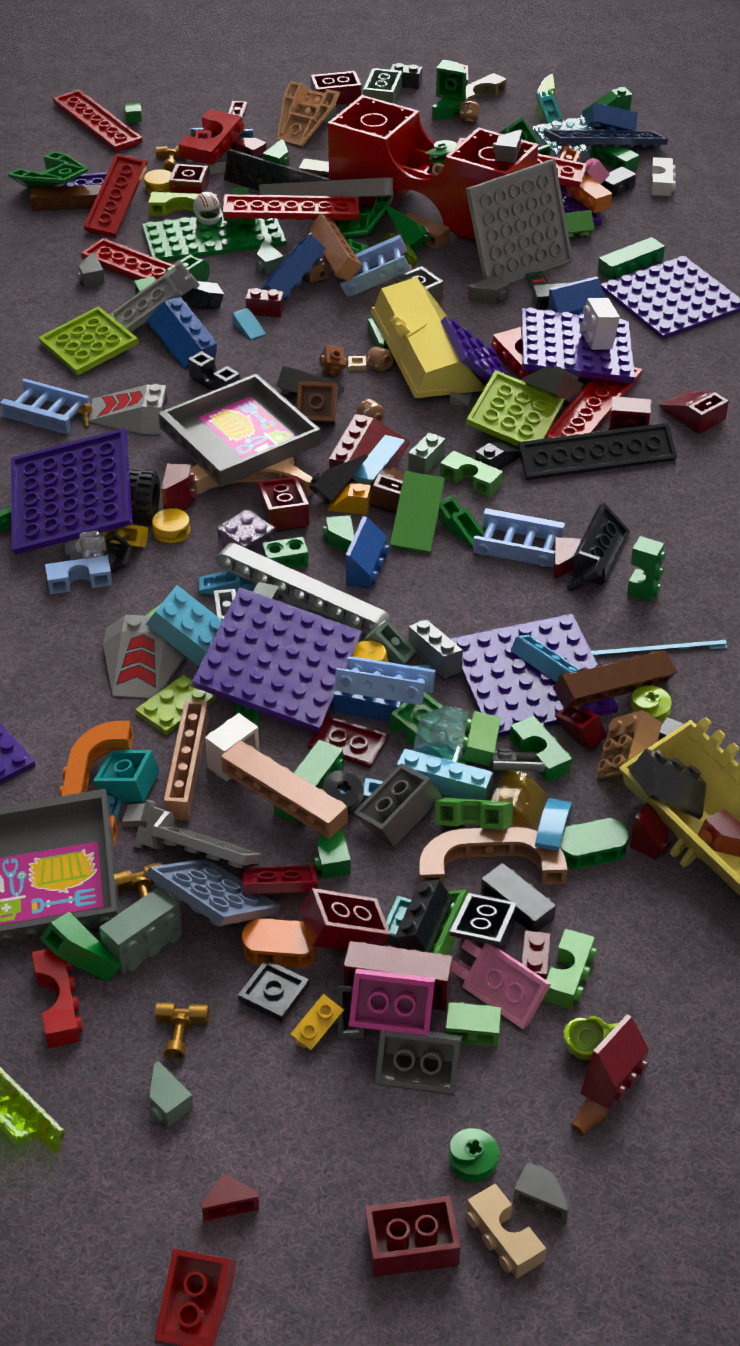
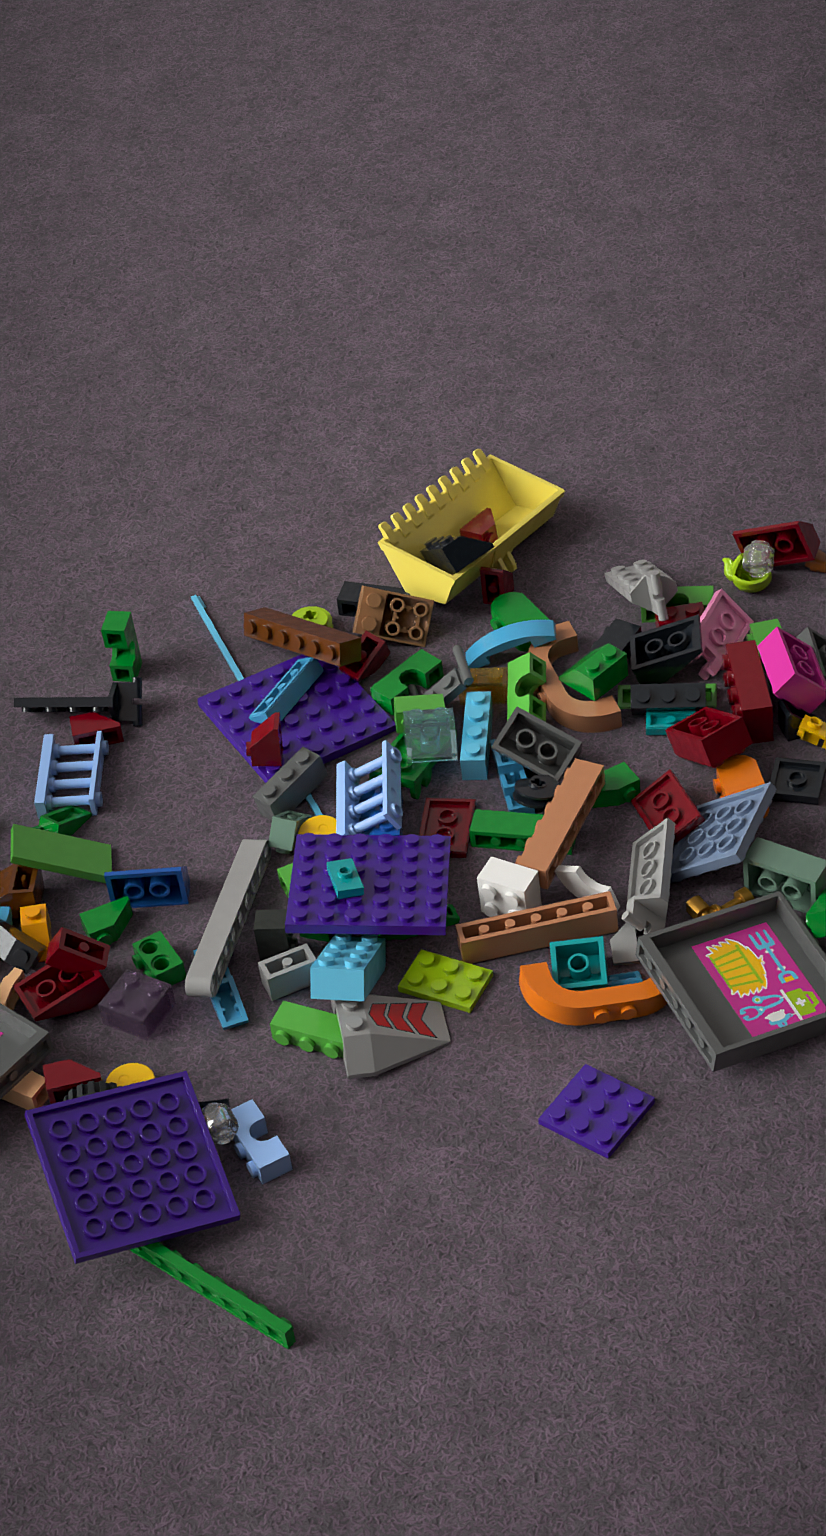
camera: 100 degrees left, 0 degrees up
(214, 802) = (580, 884): none -> white tile
(274, 631) = (345, 878): none -> teal plate
(290, 492) = (76, 952): none -> dark red slope
(472, 860) = (597, 672): none -> green slope
(473, 630) = (266, 743): none -> dark red slope
(585, 1031) = (758, 558): none -> clear head
(591, 933) = (644, 586): none -> light grey hinge

